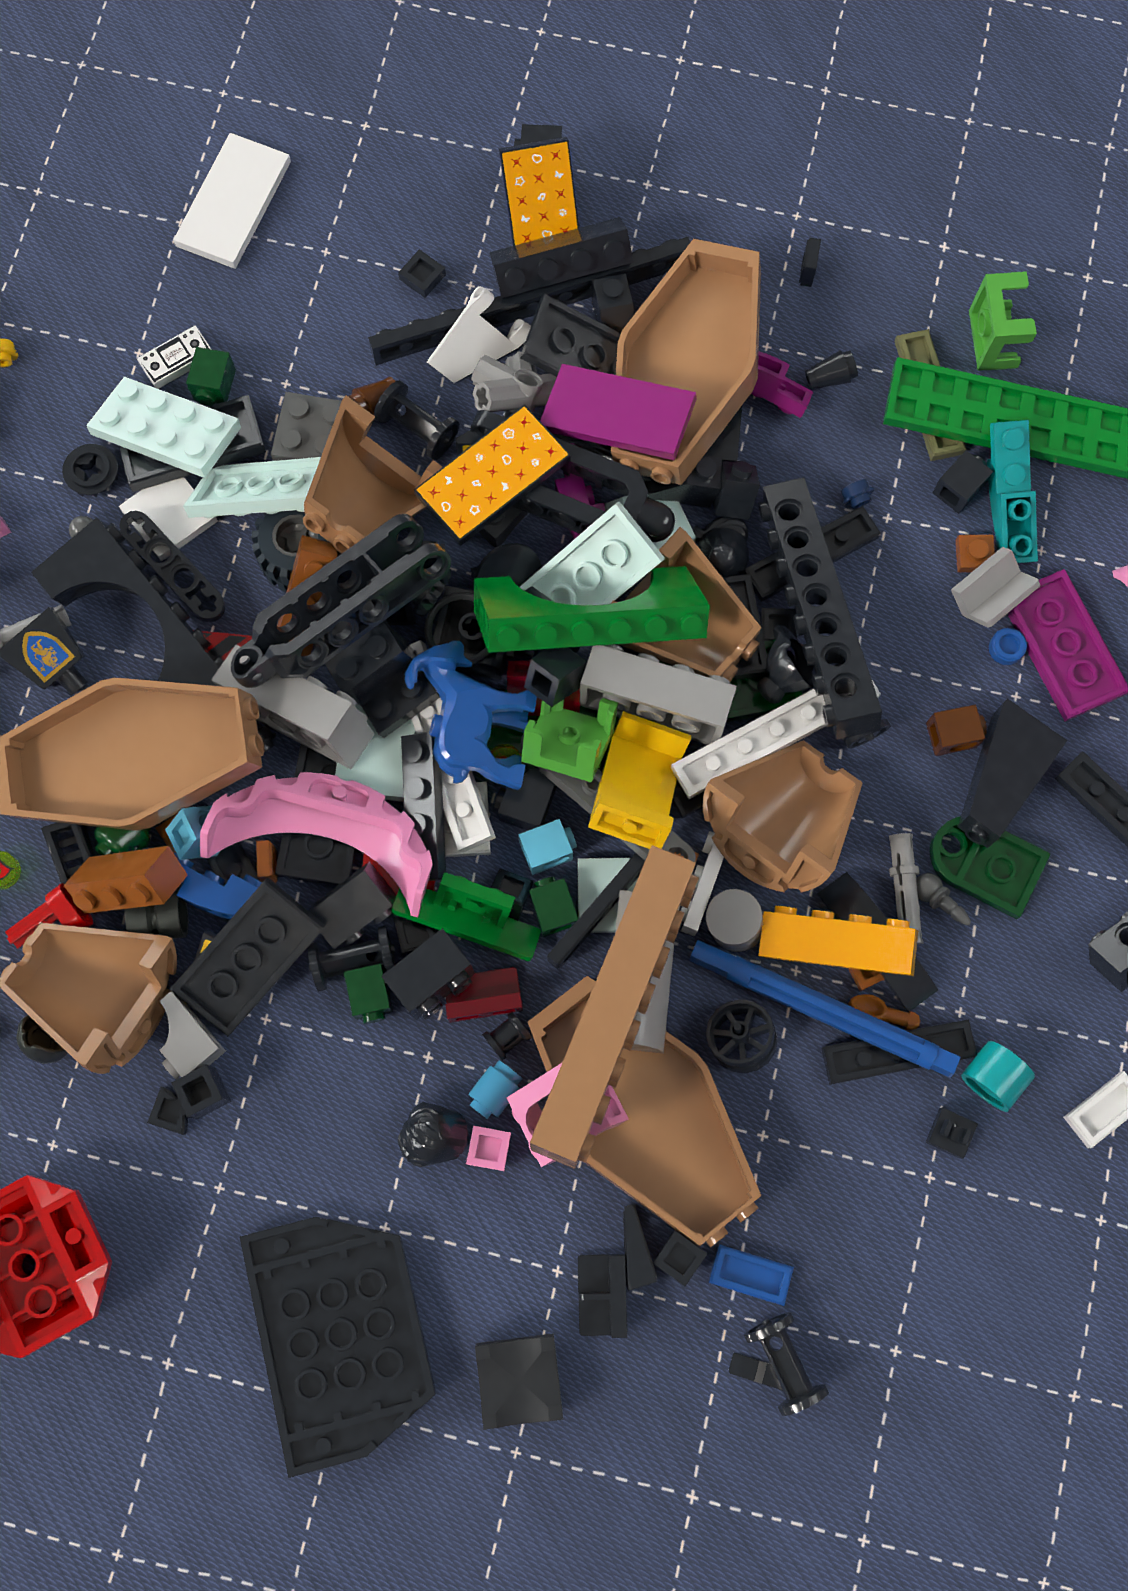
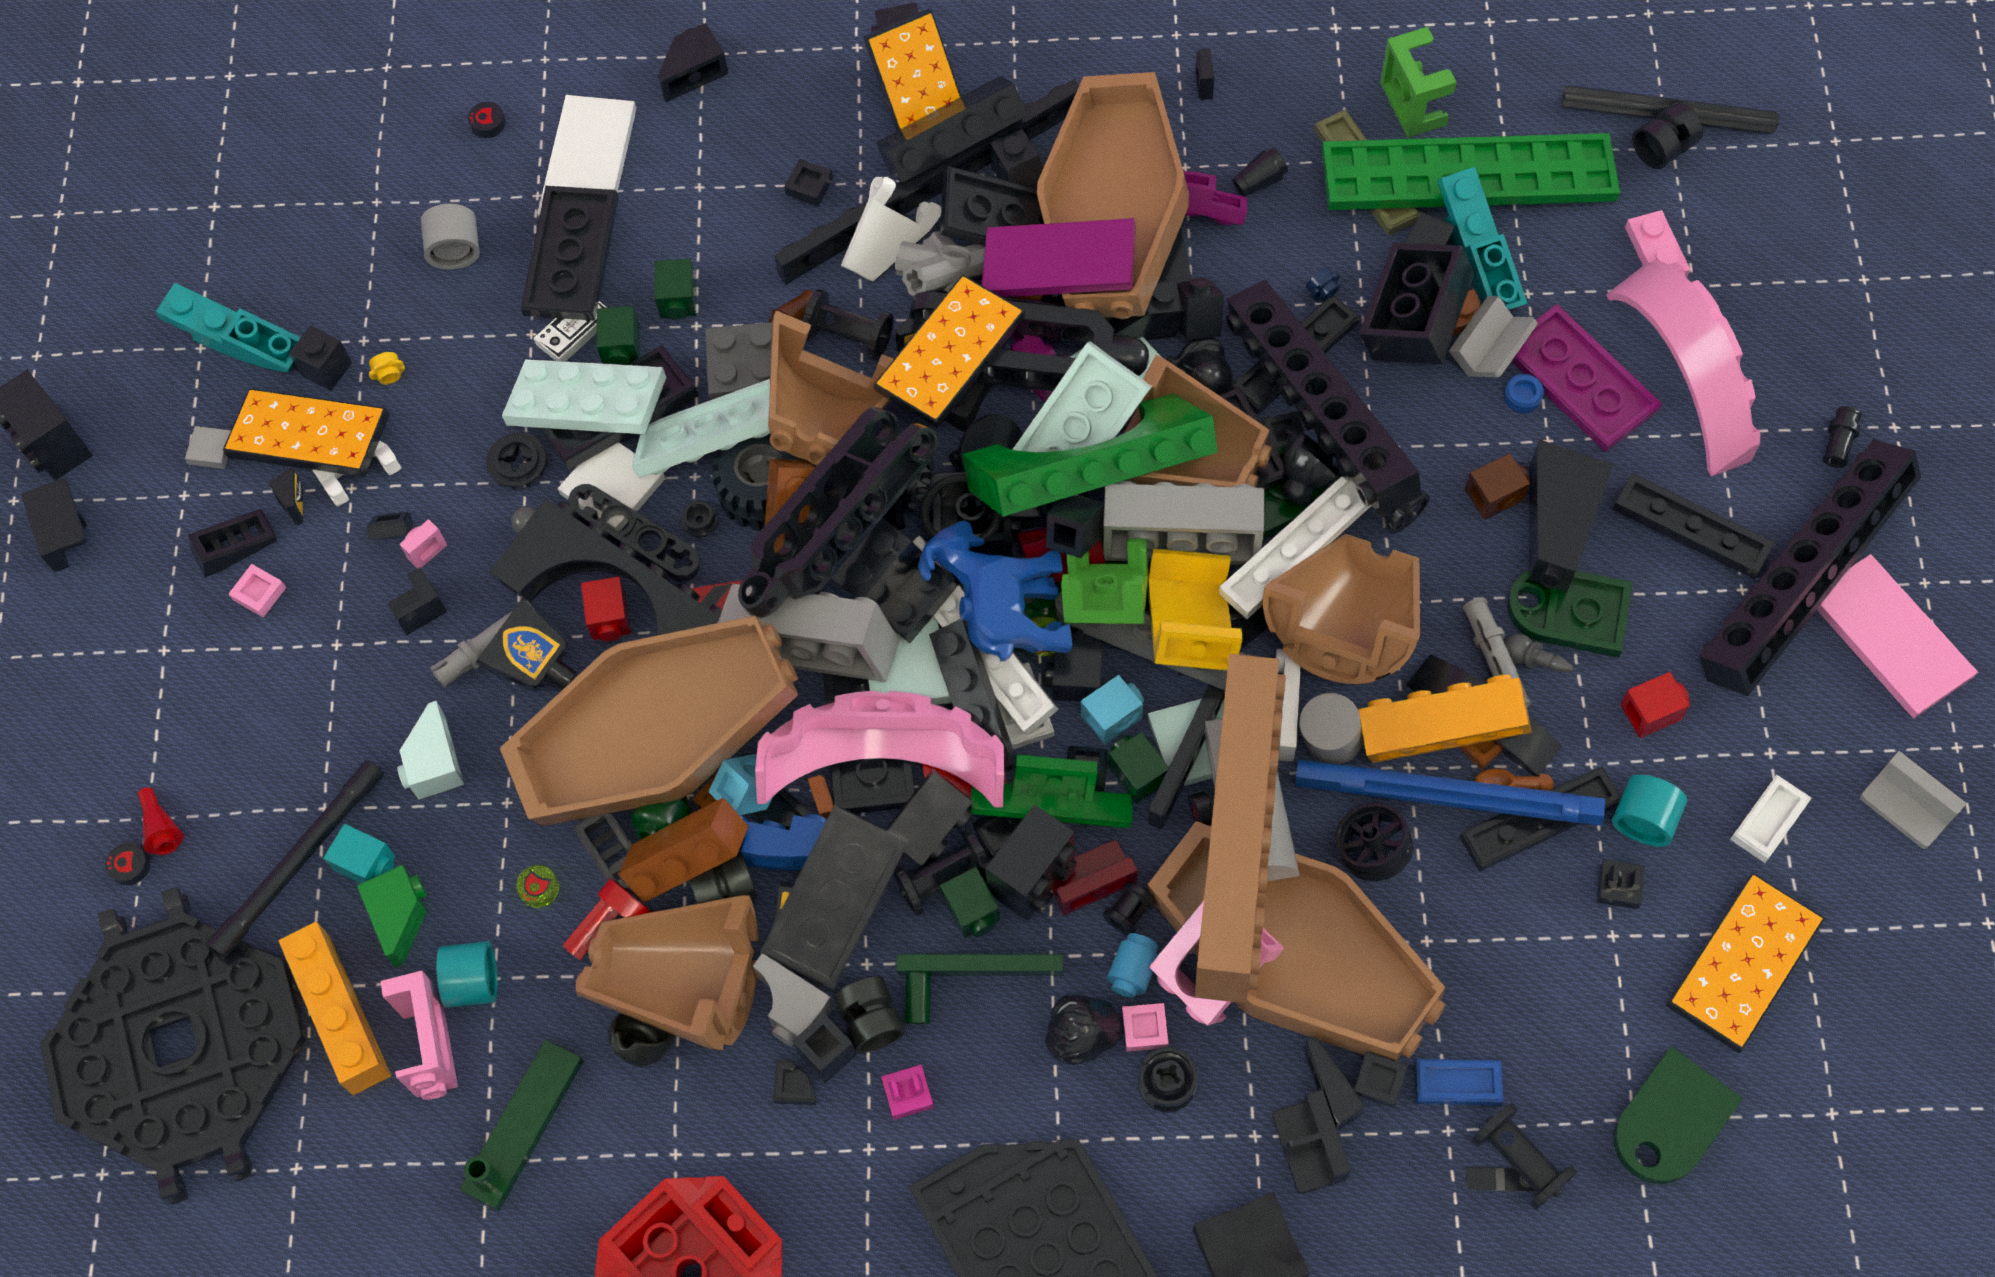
camera: 10 degrees left, 10 degrees down
(87, 242) = (450, 236): none -> light grey piece
(128, 631) = (606, 609): none -> red brick
(154, 138) = (486, 119): none -> black tile
(190, 285) = (569, 253): none -> black tile
(231, 560) = (697, 510): none -> black plate
(250, 1071) = (871, 1018): none -> pearl dark grey wheel
(266, 1147) = (907, 1092): none -> dark pink tile
(274, 344) = (675, 288): none -> dark green brick
(308, 1039) = (920, 968): none -> dark green piece
(348, 130) = (691, 62): none -> black slope
(494, 1202) = (1167, 1079): none -> black wheel
(597, 958) = (1201, 807): none -> black tile
(934, 1358) = (1675, 1115): none -> dark green tile
(935, 537) = (1417, 303): none -> black brick
(1035, 976) = (1655, 704): none -> red brick
(1040, 1237) = (1745, 962): none -> light orange tile

